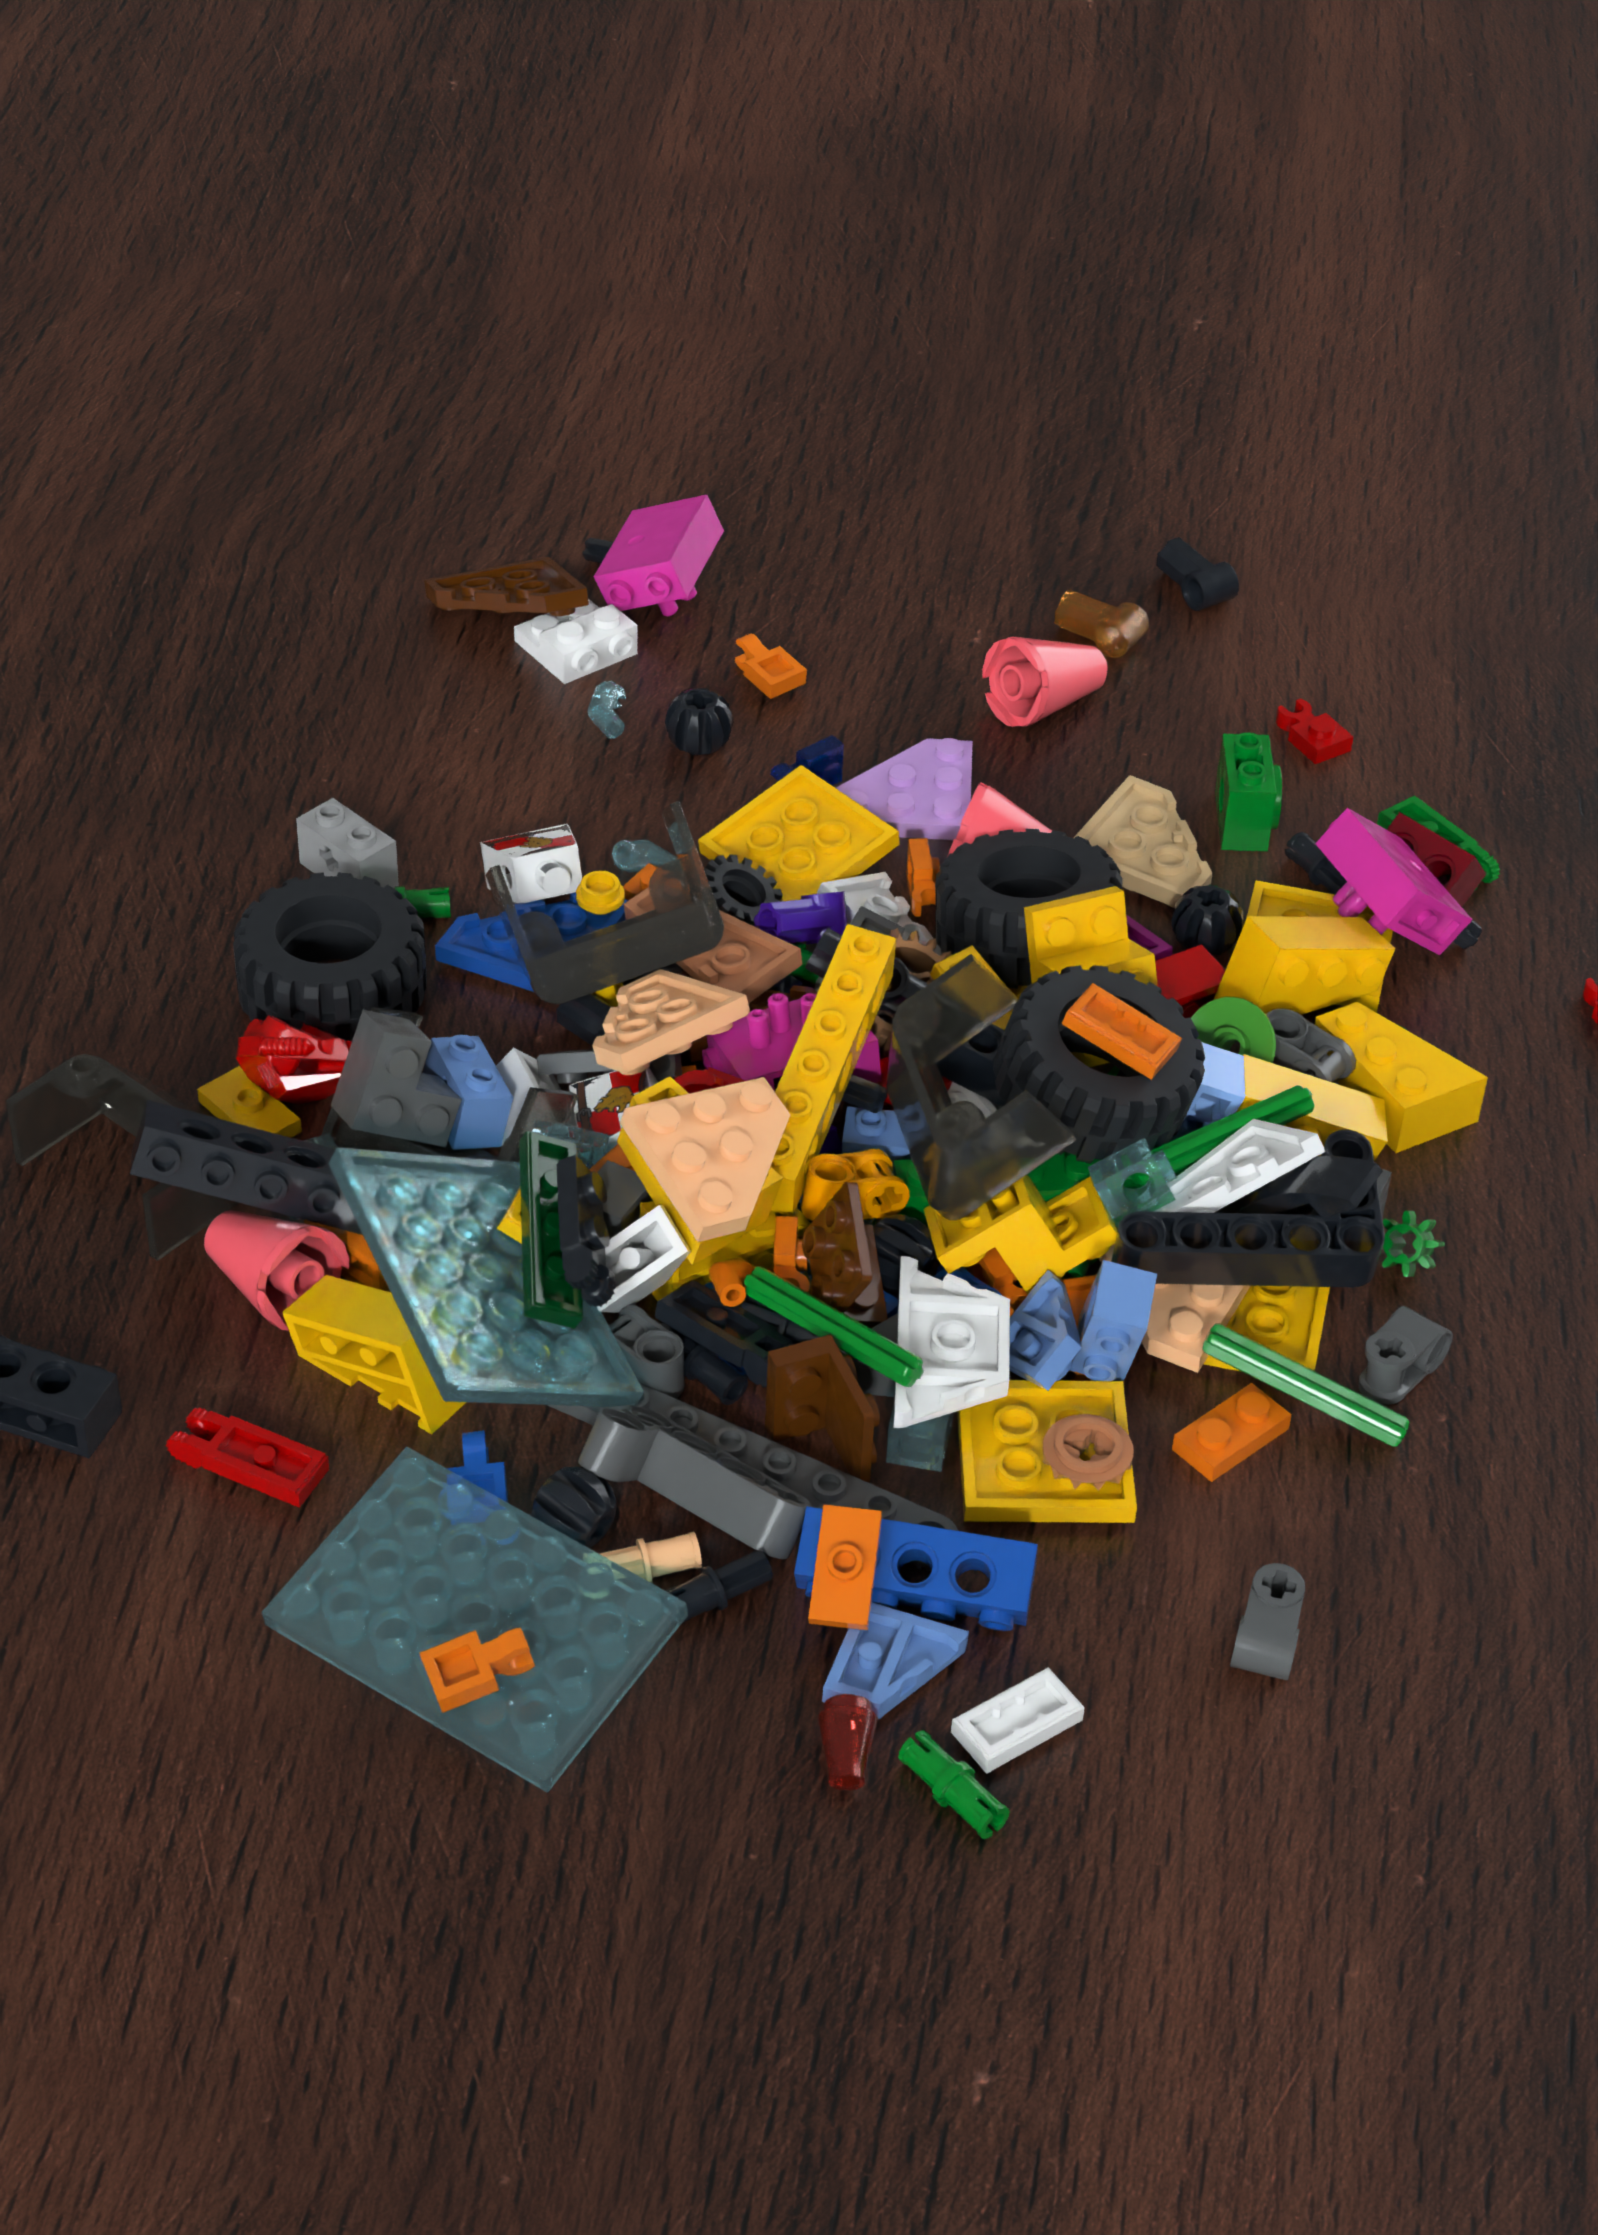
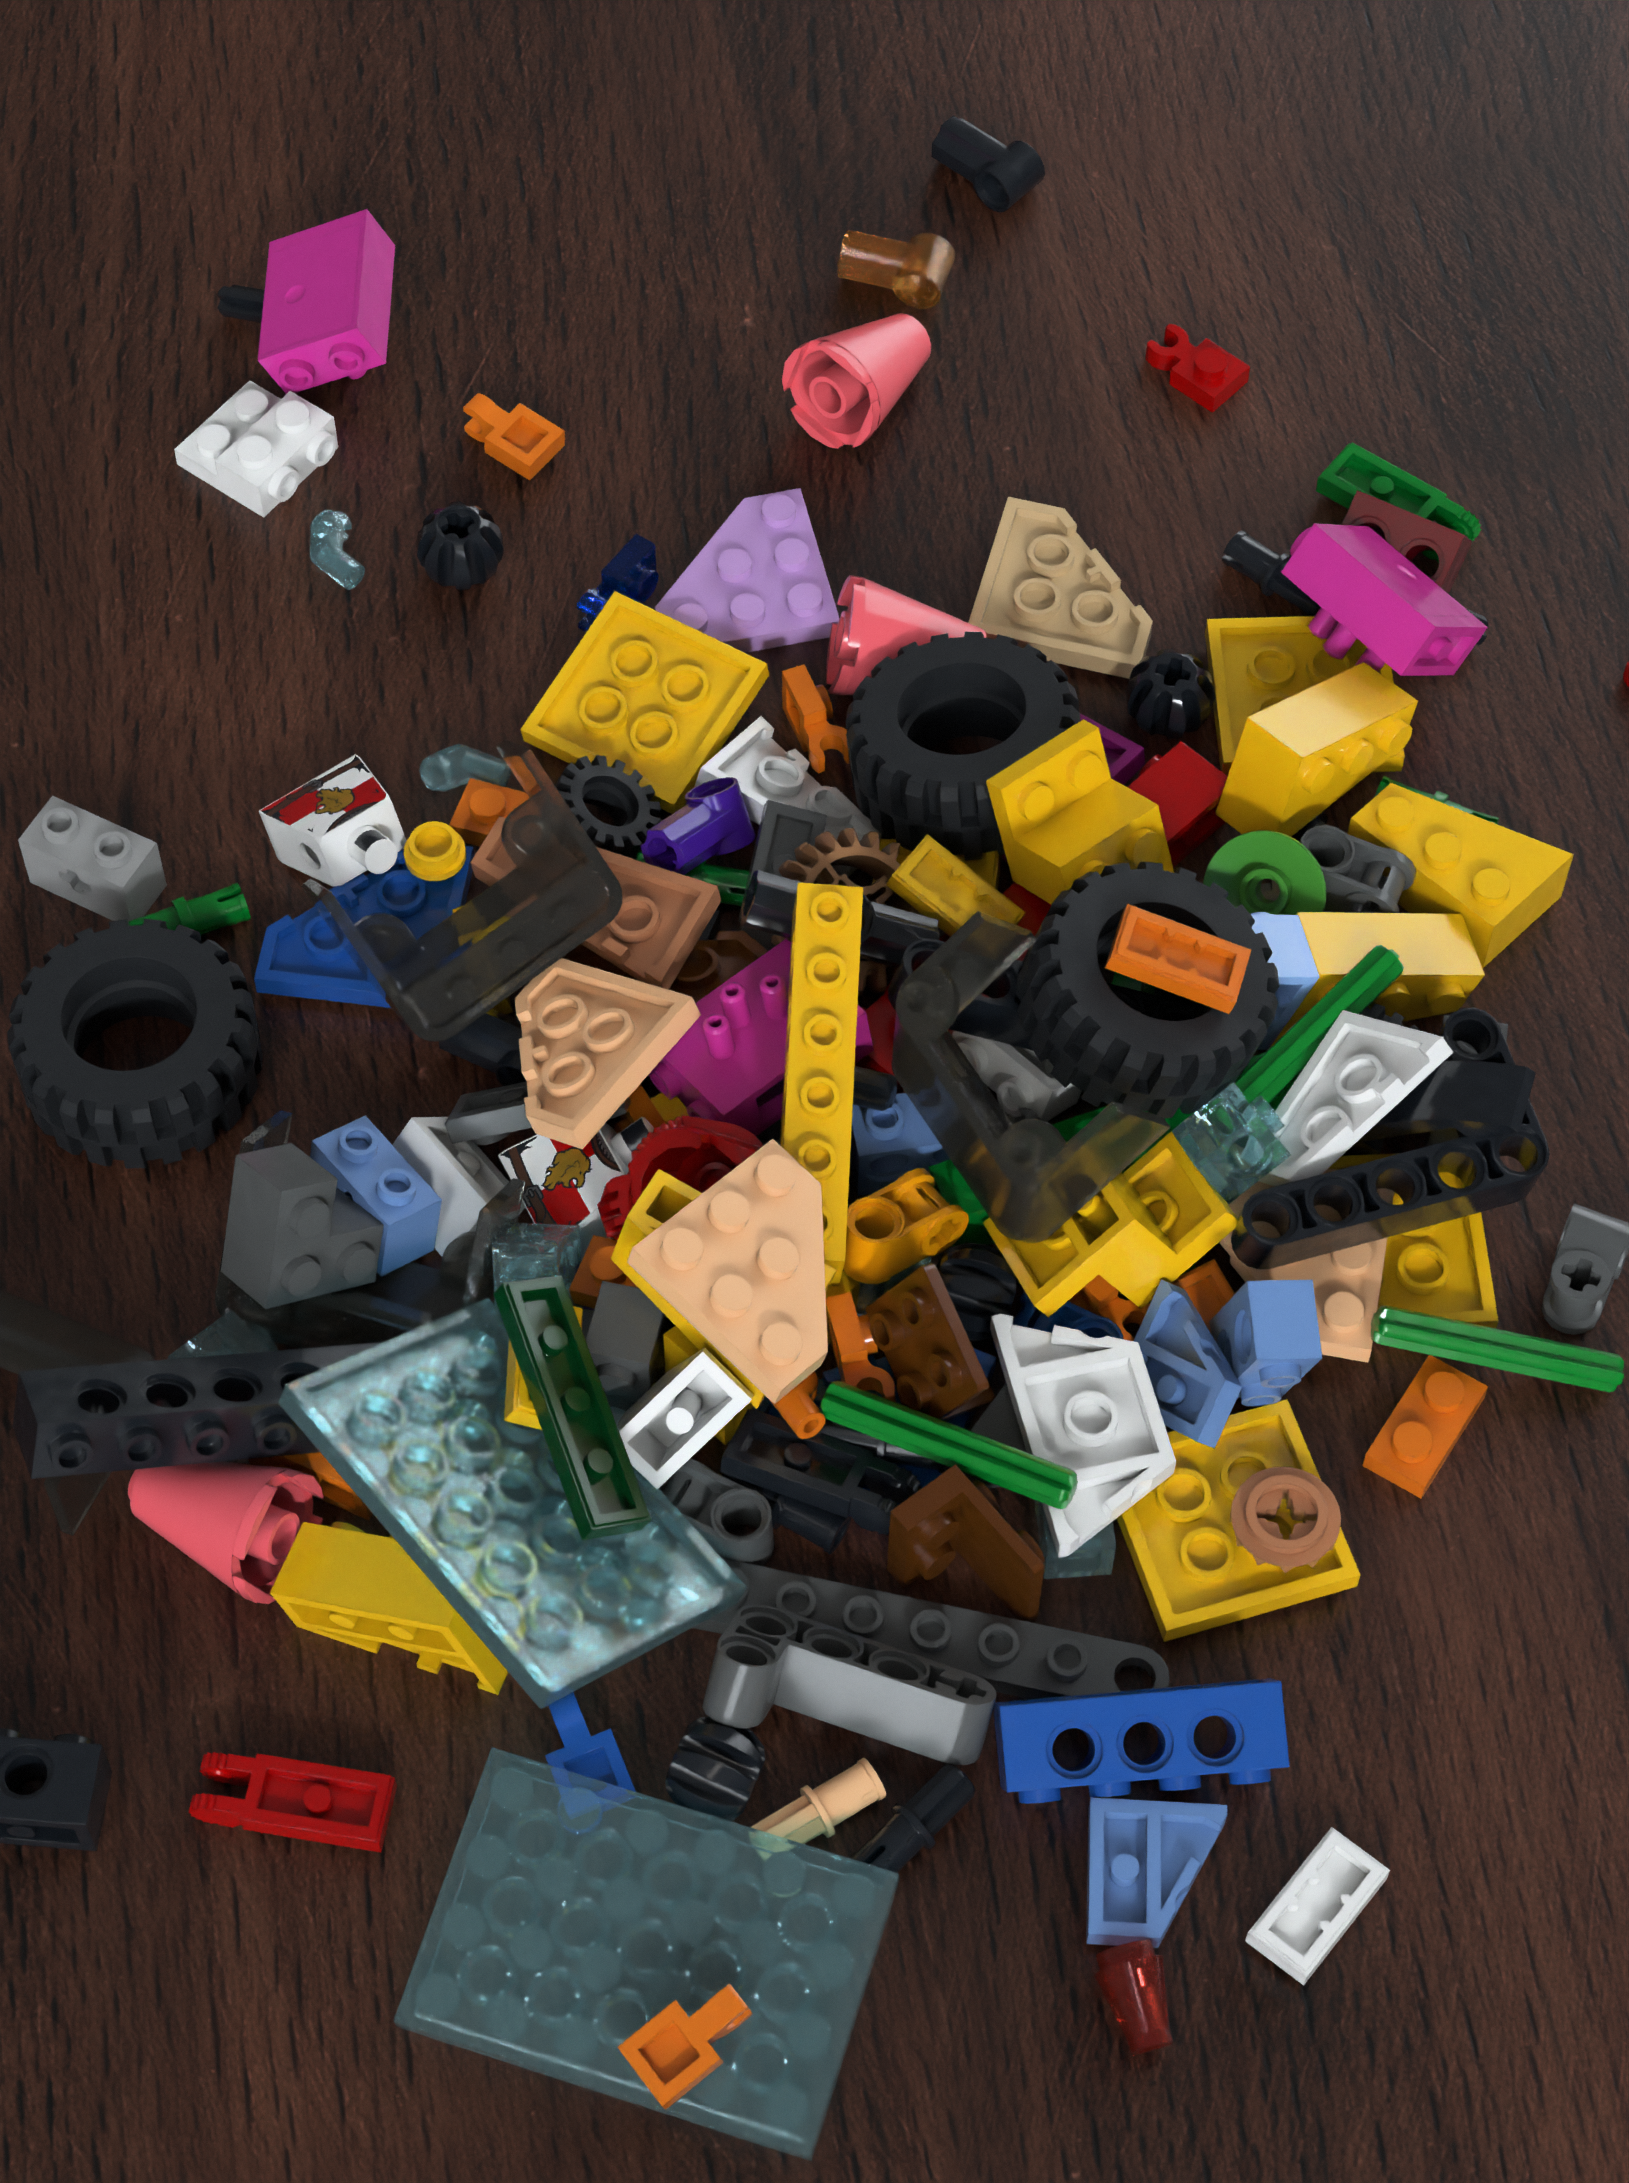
camera: 15 degrees left, 15 degrees up
(241, 1101) = (107, 1283): yellow plate -> none
(290, 1061) = (149, 1202): red helmet -> none
(516, 587) = (155, 392): reddish brown plate -> none
(583, 1231) = (619, 1407): black hinge -> none
(845, 1567) = (1069, 1774): orange plate -> none
(953, 1784) = (1273, 2014): green pin -> none
(1247, 792) = (1157, 491): green brick -> none
(1270, 1623) = (1559, 1702): dark grey piece -> none
(1423, 1244) = (1557, 1124): green gear -> none

